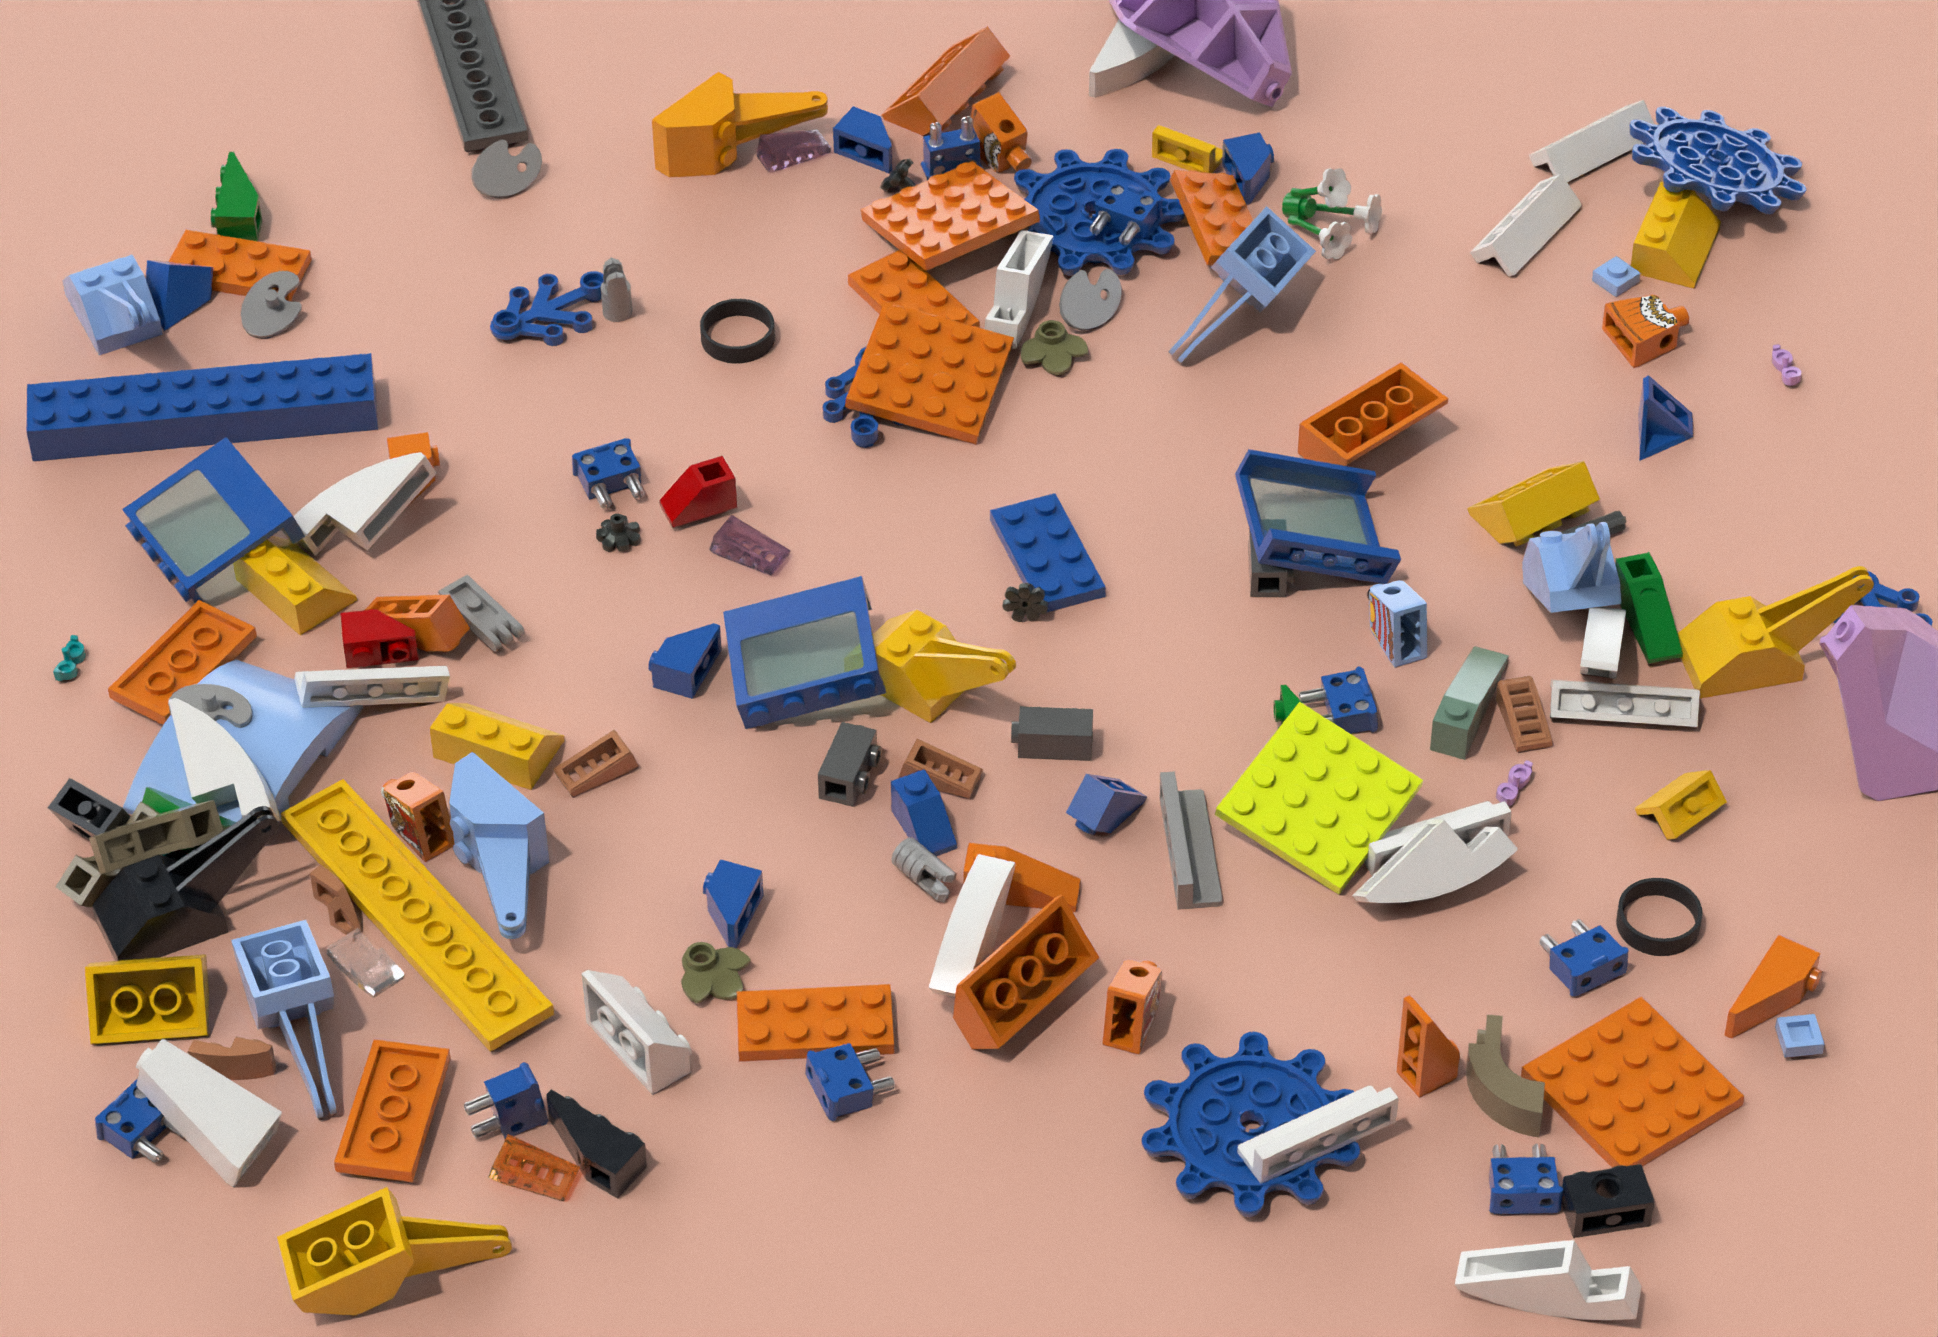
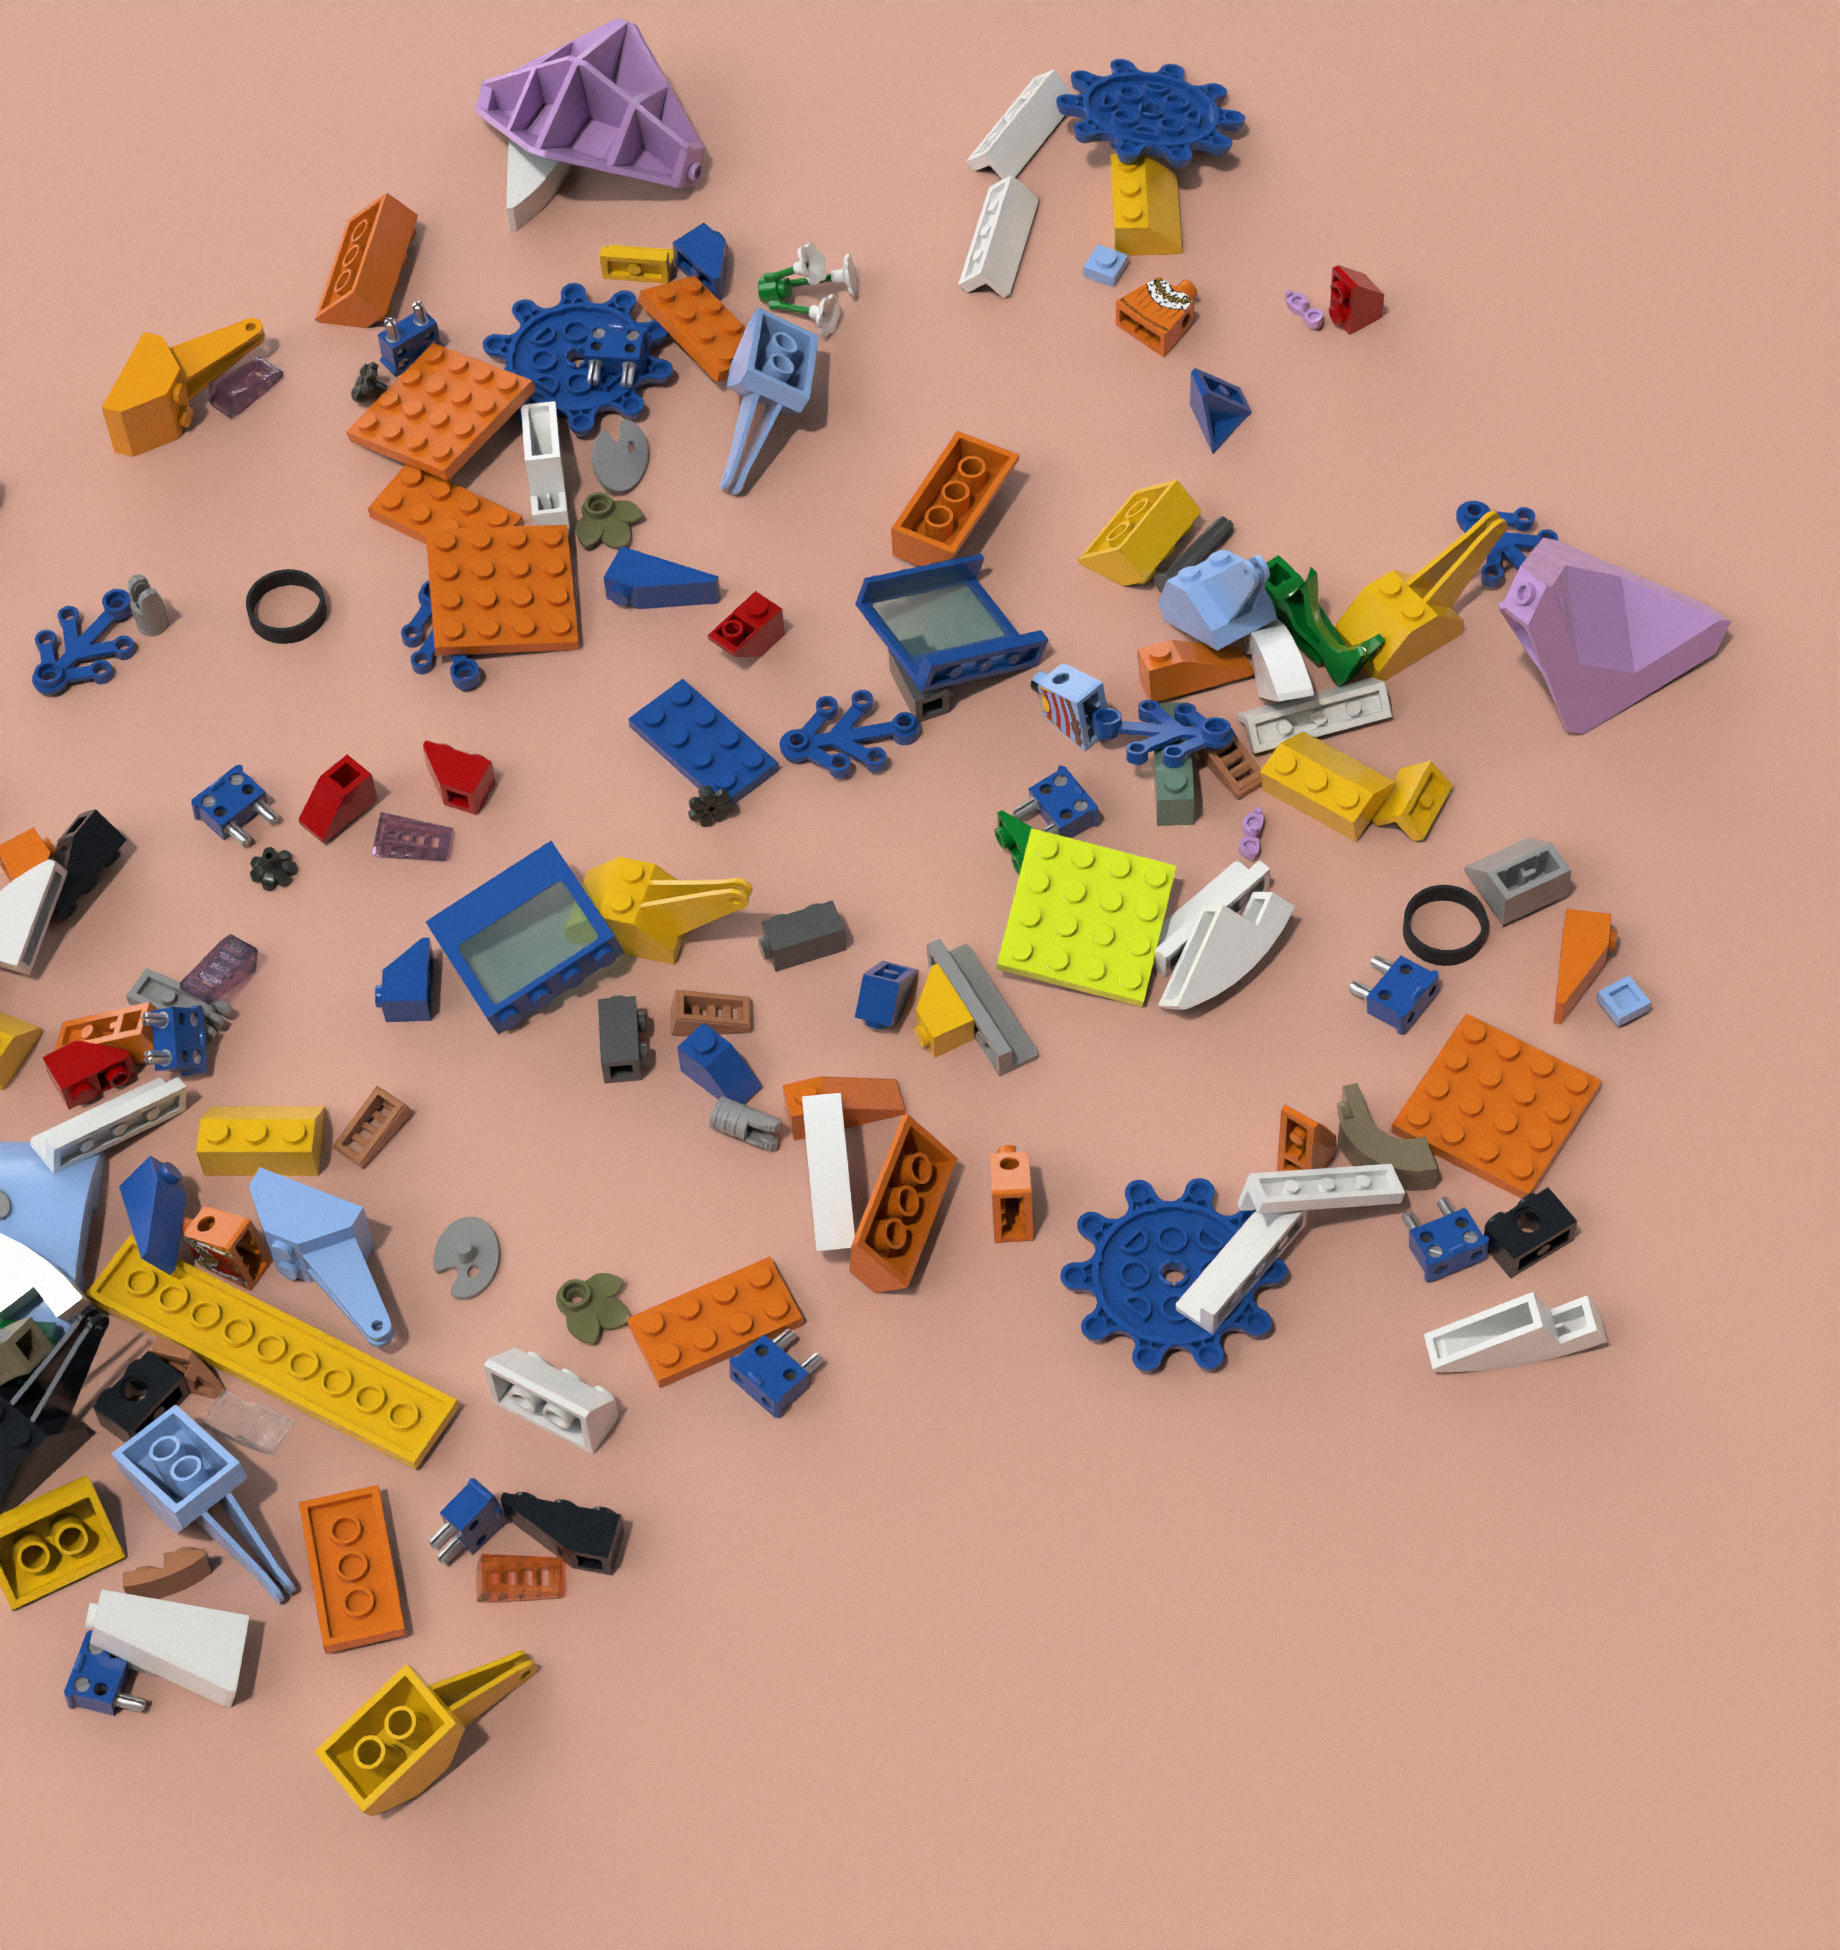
camera: 20 degrees left, 10 degrees up
(285, 904) = (146, 1377): none -> black brick
(371, 764) = (156, 1211): none -> blue slope
(456, 468) = (84, 851): none -> black slope
(461, 636) = (177, 1040): none -> blue piece
(531, 596) = (230, 961): none -> slope
(629, 888) = (466, 1246): none -> light grey piece
(733, 898) = (576, 1223): blue slope -> none
(817, 510) = (459, 777): none -> red slope
(863, 139) = (315, 353): blue slope -> none
(1000, 134) = (452, 306): orange torso -> none
(1070, 409) = (657, 583): none -> blue slope
(1135, 469) = (750, 628): none -> red slope
(1138, 582) = (845, 737): none -> blue plant
(1146, 838) = (942, 1016): none -> yellow slope
(1420, 1089) = (1321, 1189): none -> white panel
(1468, 664) = (1211, 733): none -> blue plant
(1518, 623) = (1186, 667): none -> orange slope
(1602, 761) = (1325, 784): none -> yellow slope
(1669, 664) = (1304, 613): none -> green animal
(1750, 900) = (1520, 878): none -> light grey slope
(1834, 367) = (1354, 299): none -> red slope

